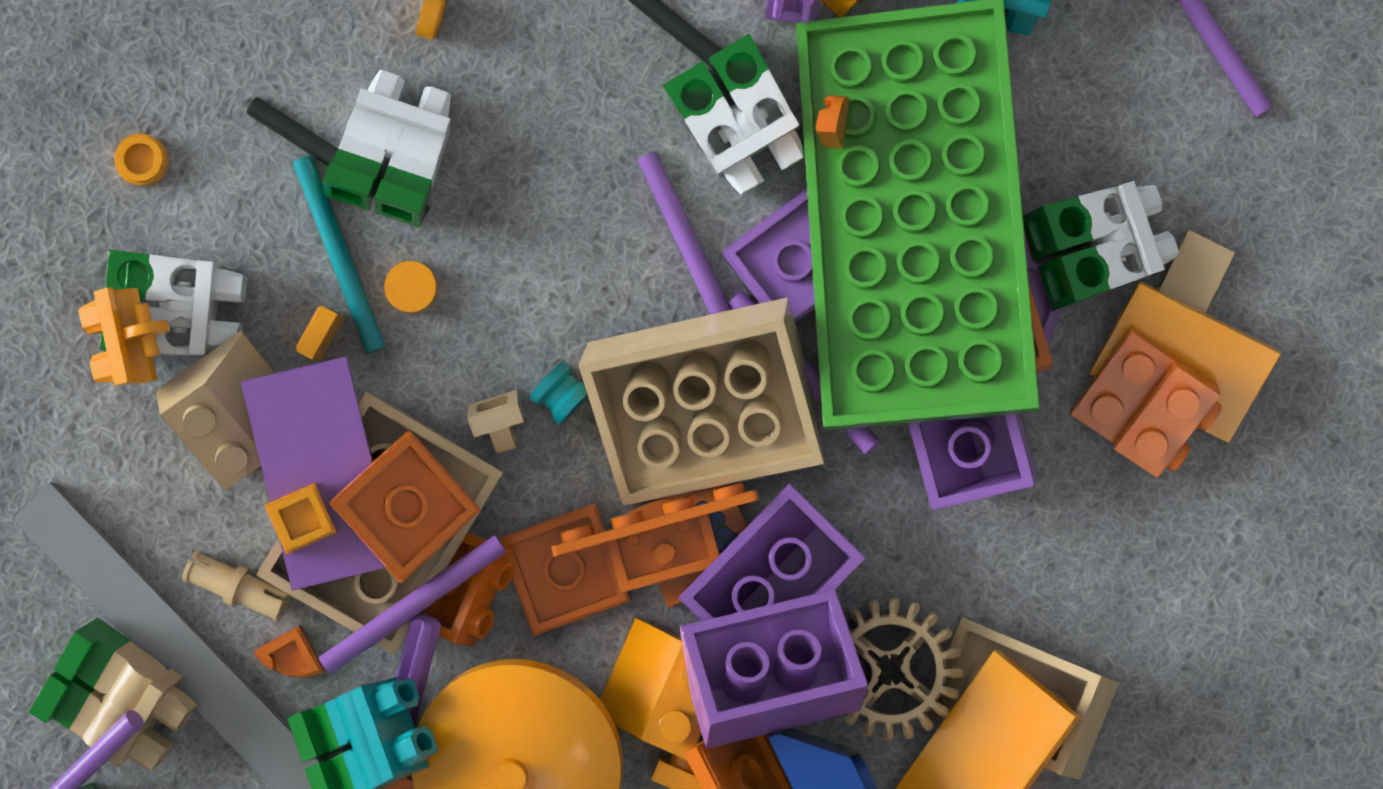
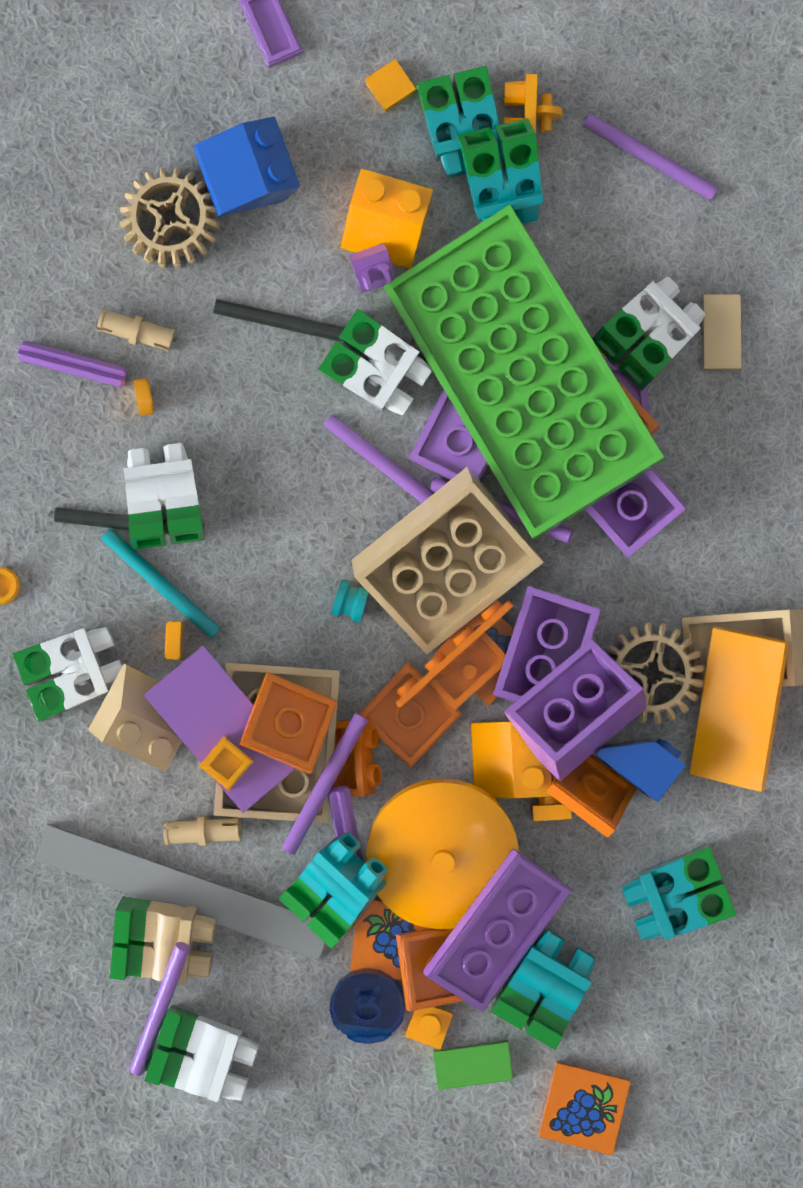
camera: 25 degrees left, 0 degrees up
(127, 336) = (54, 701): light orange hips -> none
(291, 655) = (259, 858): orange tile -> none
(411, 287) = (218, 581): light orange tile -> none
(497, 417) = (317, 637): tan tile -> none
(832, 121) = (439, 338): orange tile -> none
(1148, 403) = (733, 420): orange plate -> none
(1204, 343) = (742, 381): light orange tile -> none

